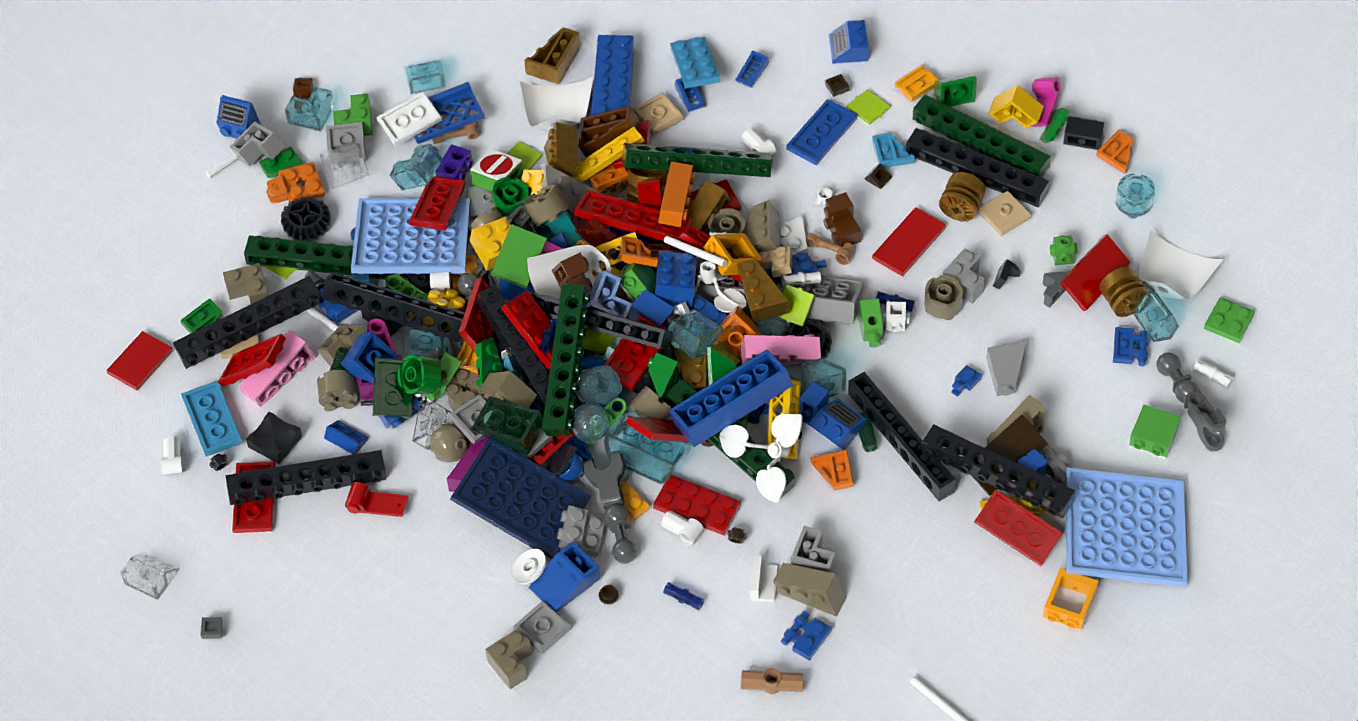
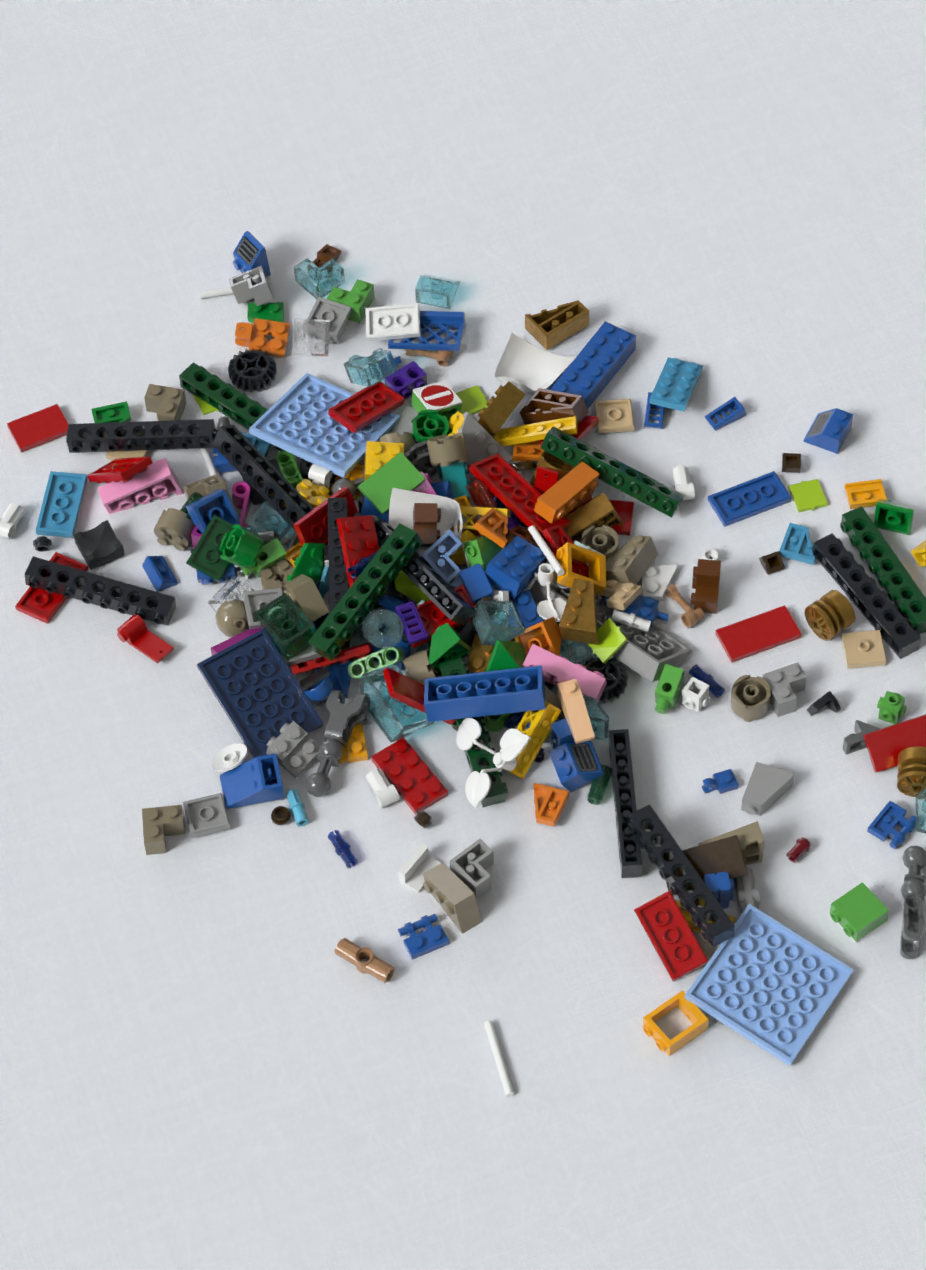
camera: 30 degrees right, 0 degrees up
(590, 422) = (357, 657): clear light blue cylinder -> none
(613, 359) = (409, 611): none -> dark purple slope
(618, 580) = (297, 807): none -> medium azure axle
(814, 375) = (575, 710): none -> light nougat slope
(1069, 401) = (798, 850): none -> dark red pin

